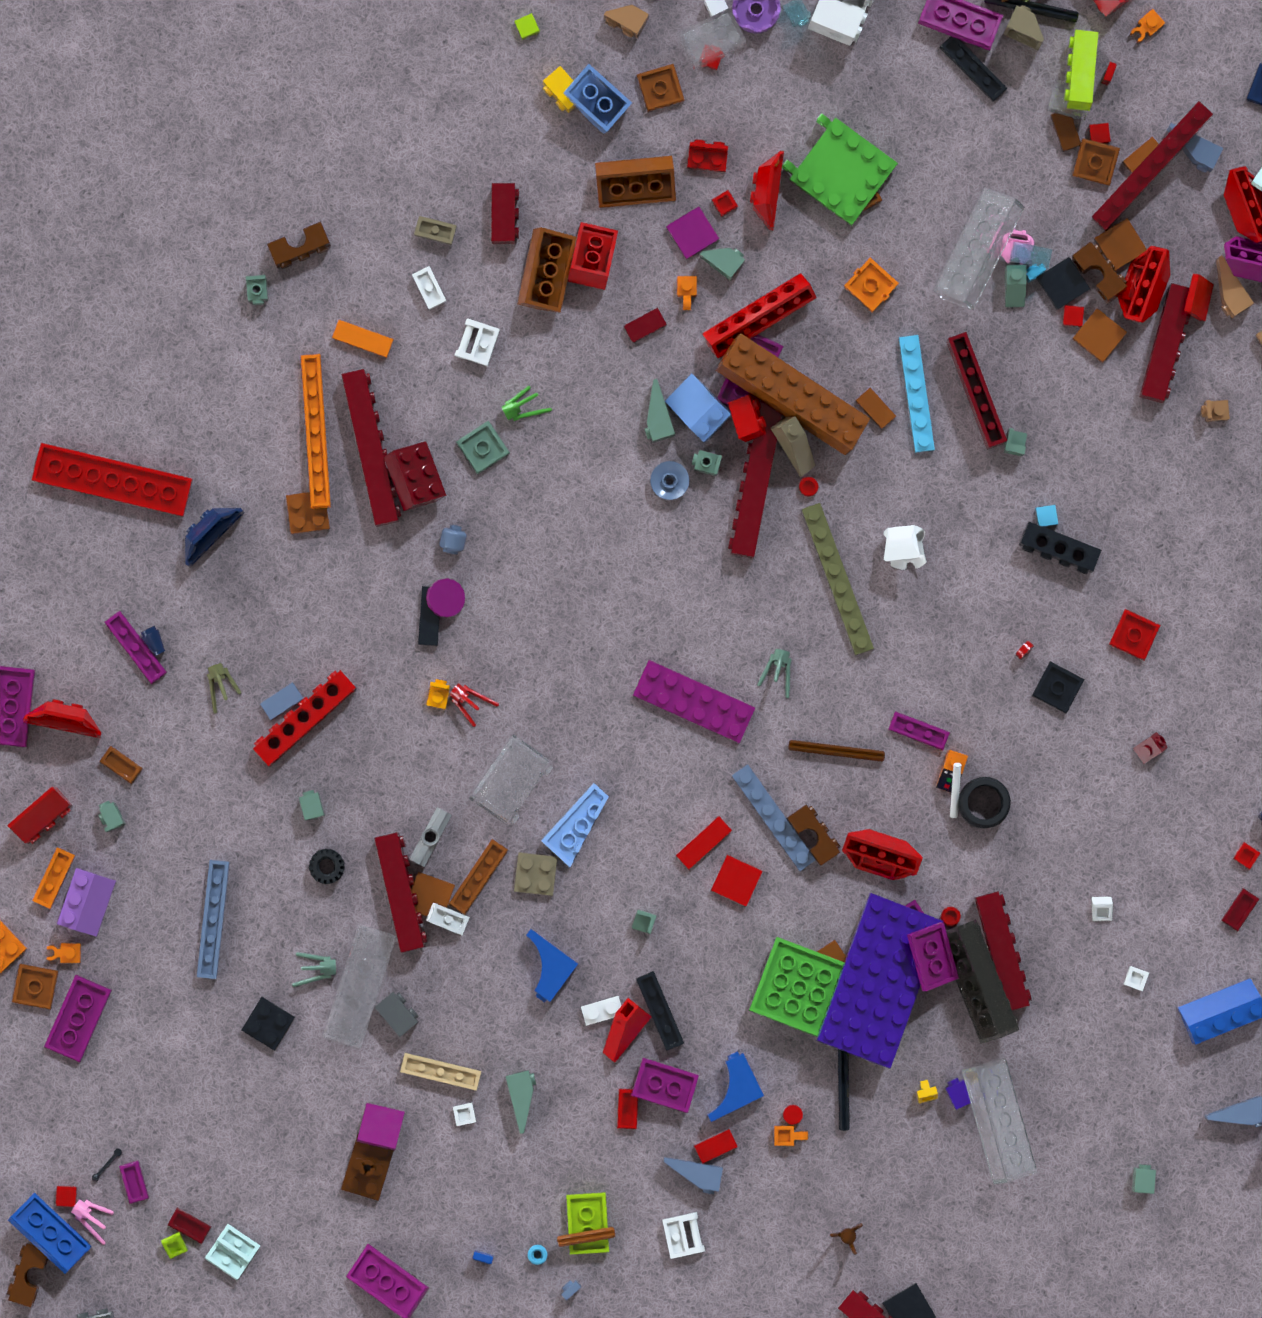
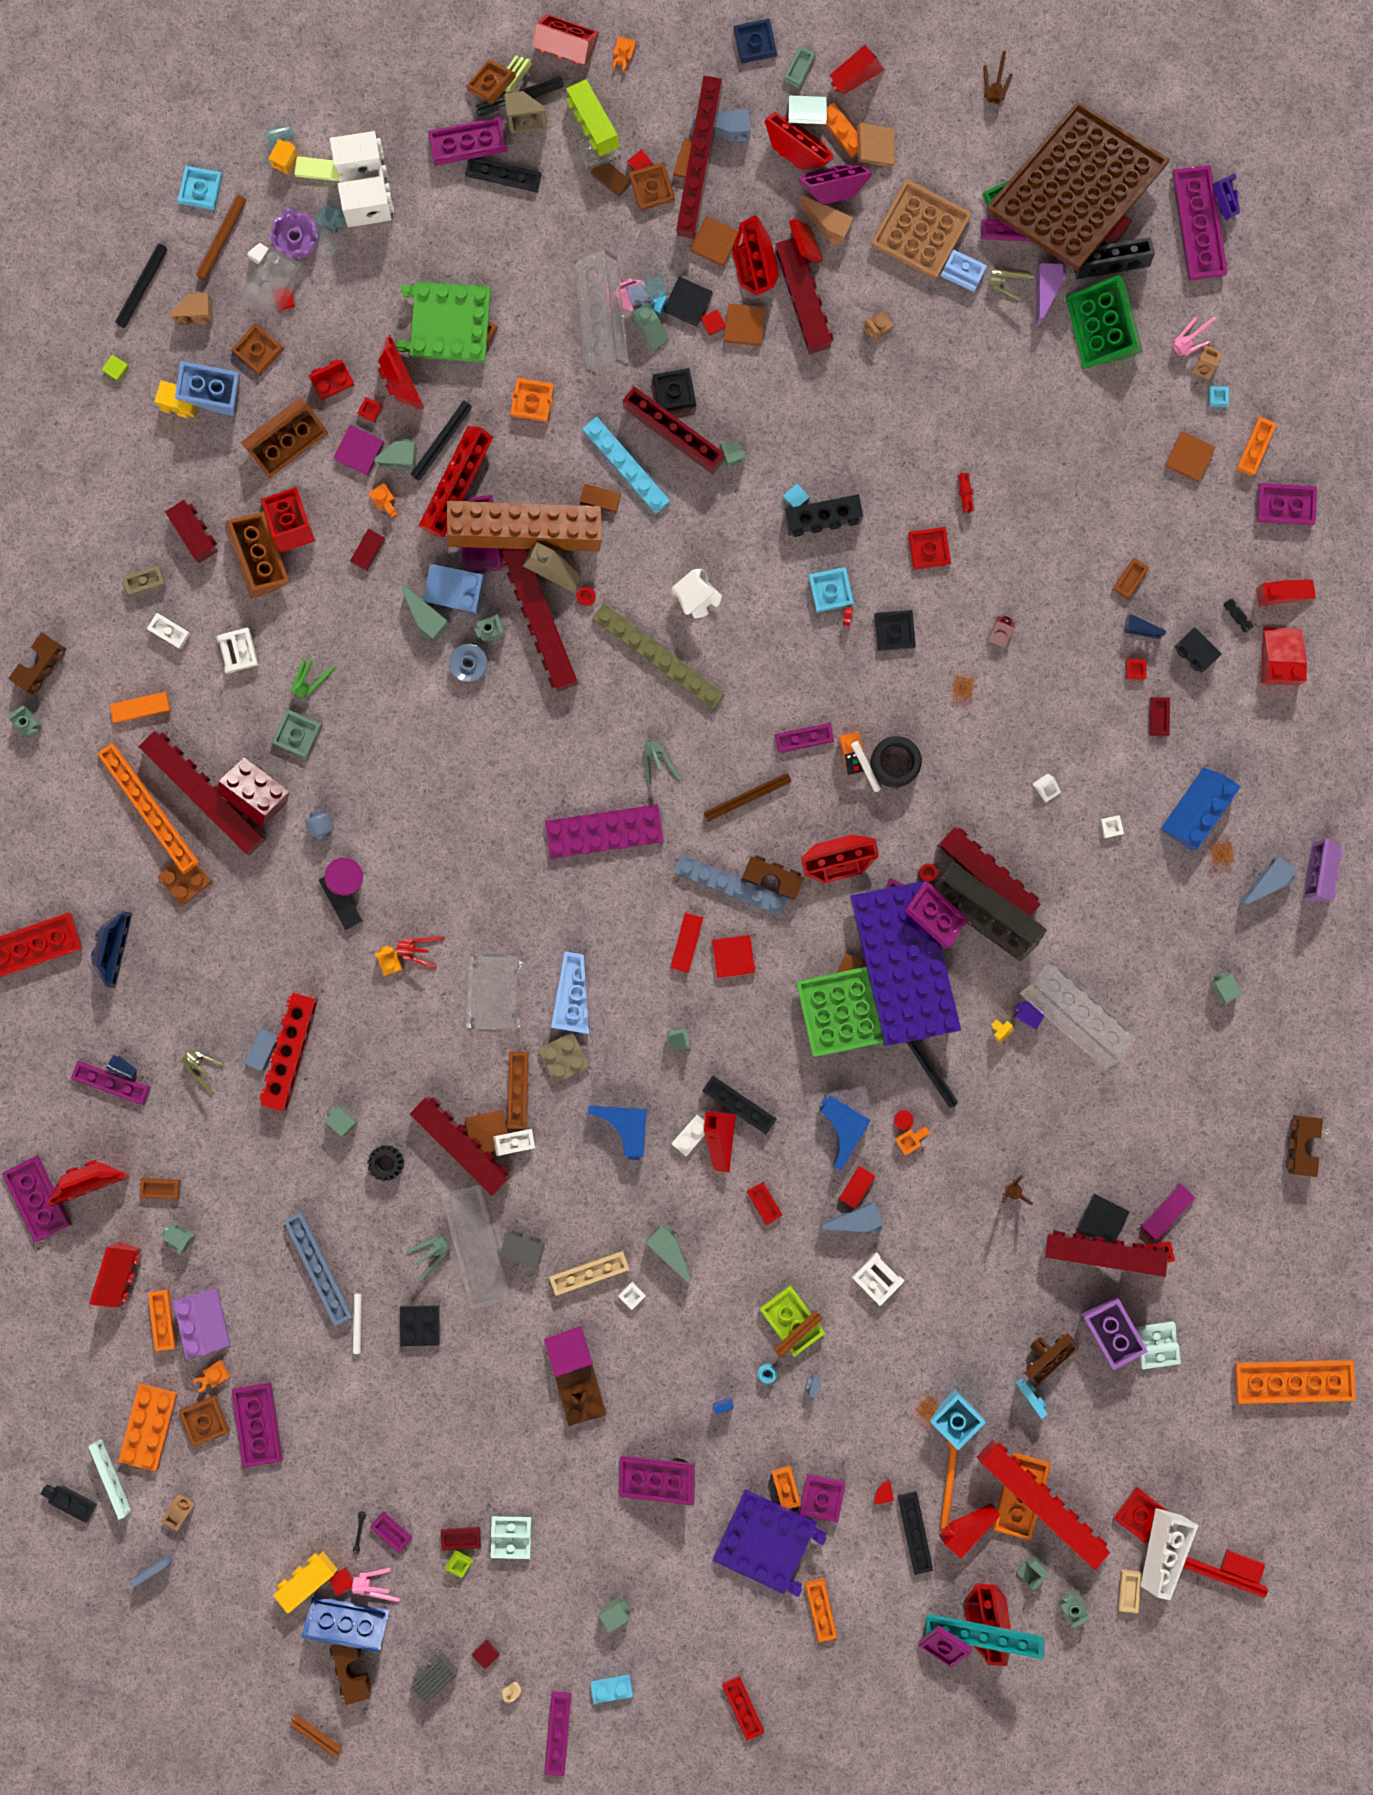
camera: 30 degrees left, 0 degrees up
(36, 1175) = (304, 1581): none -> yellow brick
(216, 987) = (357, 1324): none -> white bar
(437, 825) = (457, 1096): light grey piece -> none
(664, 1085) = (783, 1164): magenta plate -> none
(747, 418) = (498, 569): red brick -> none
(769, 270) = (441, 440): none -> black axle
(1001, 354) = (674, 389): none -> black tile
(1024, 616) = (831, 589): none -> medium azure plate
(1085, 775) = (963, 687): none -> clear orange tile
(1091, 258) = (698, 265): reddish brown arch -> none
(1109, 73) = (616, 108): red tile -> none
(1197, 606) = (965, 492): none -> red pin
(1217, 1062) = (1222, 853): none -> clear orange tile

